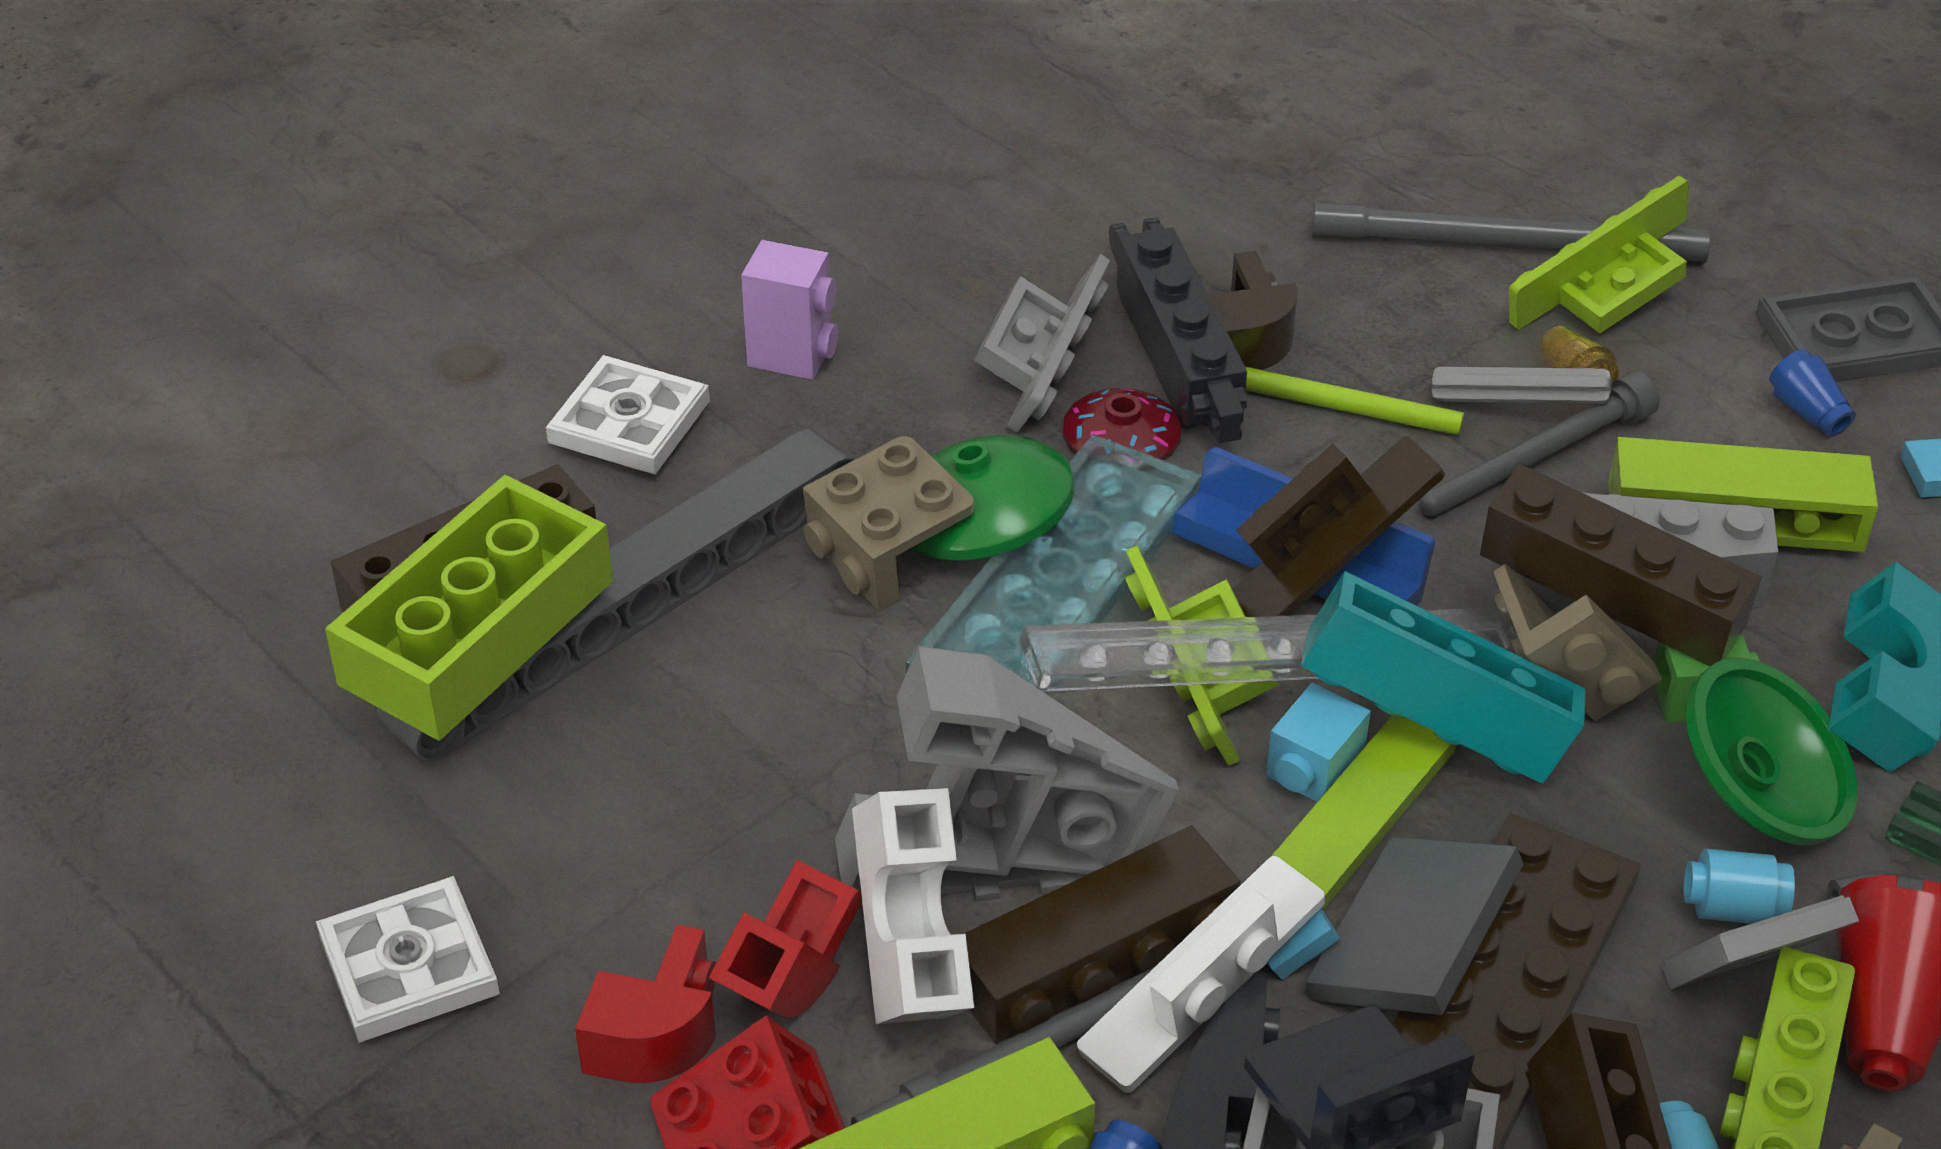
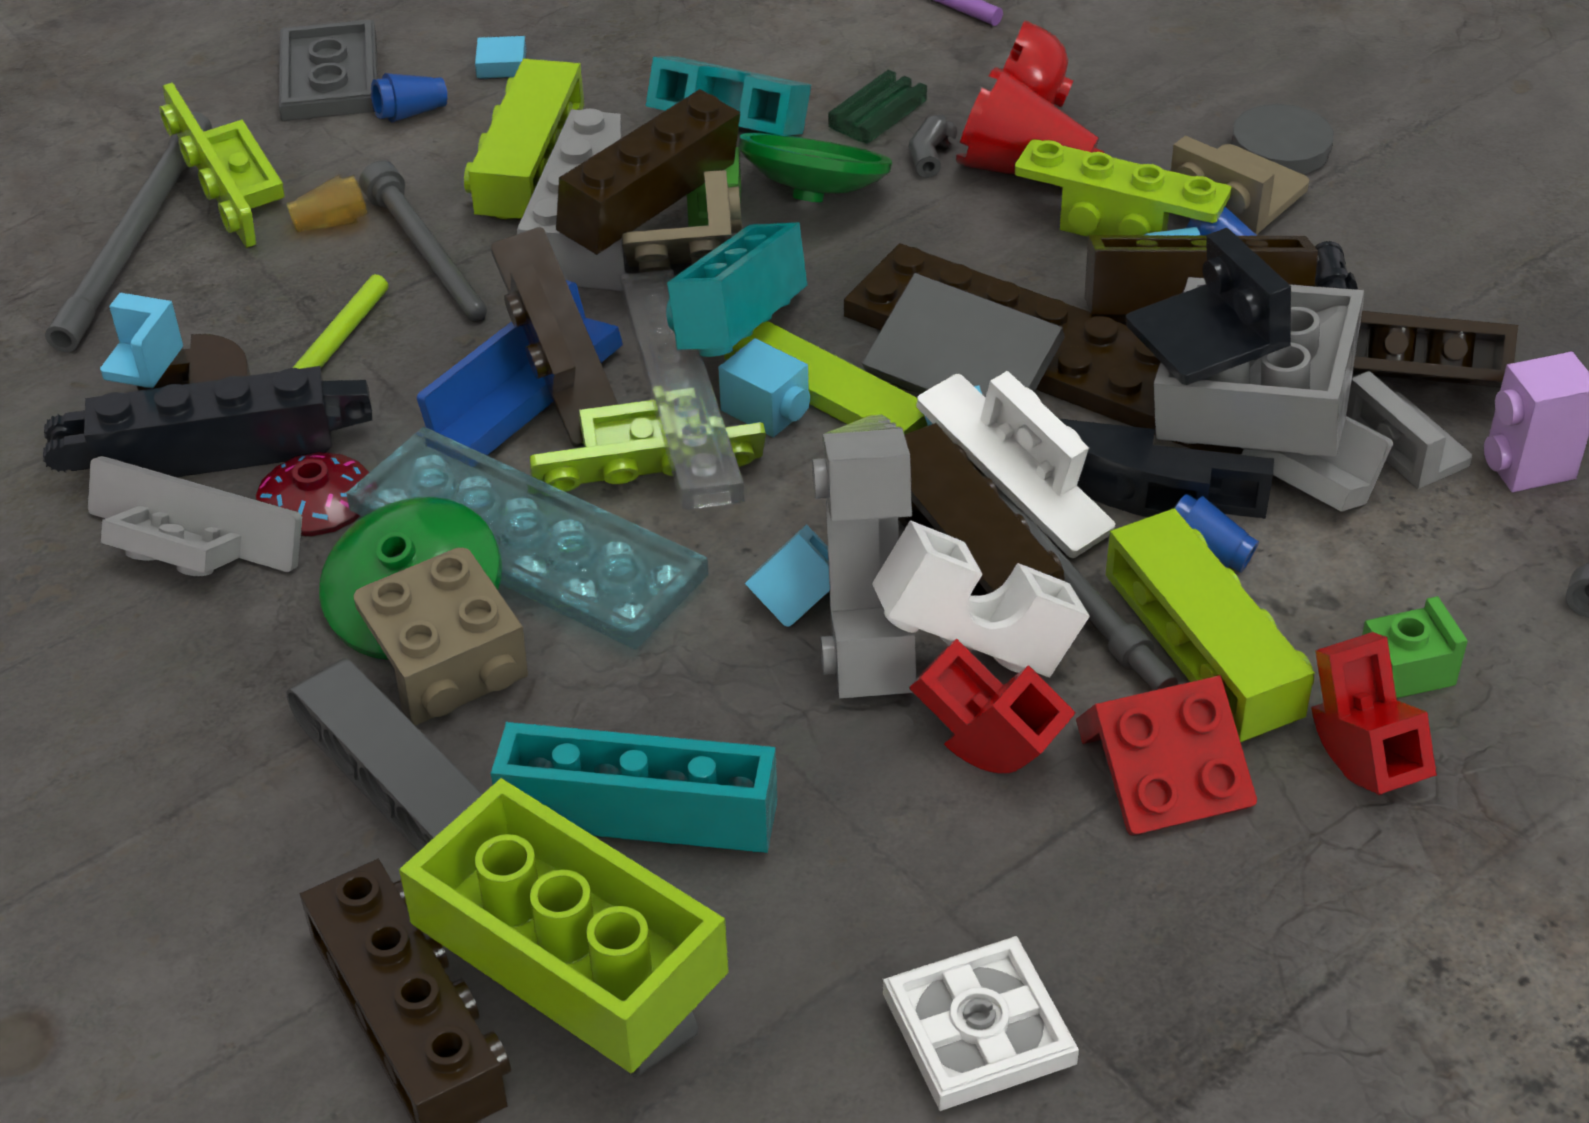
camera: 85 degrees left, 0 degrees up
(628, 414) = (189, 864): white piece -> none
(647, 1027) = (1062, 810): red brick -> none
(684, 677) = (645, 784): none -> teal brick
(788, 309) = (95, 696): lavender brick -> none
(1249, 247) = (146, 337): none -> medium azure panel
(1521, 385) = (354, 236): light grey axle -> none
(1738, 886) = (927, 200): medium azure brick -> none
(1759, 941) = (1002, 183): light grey tile -> none

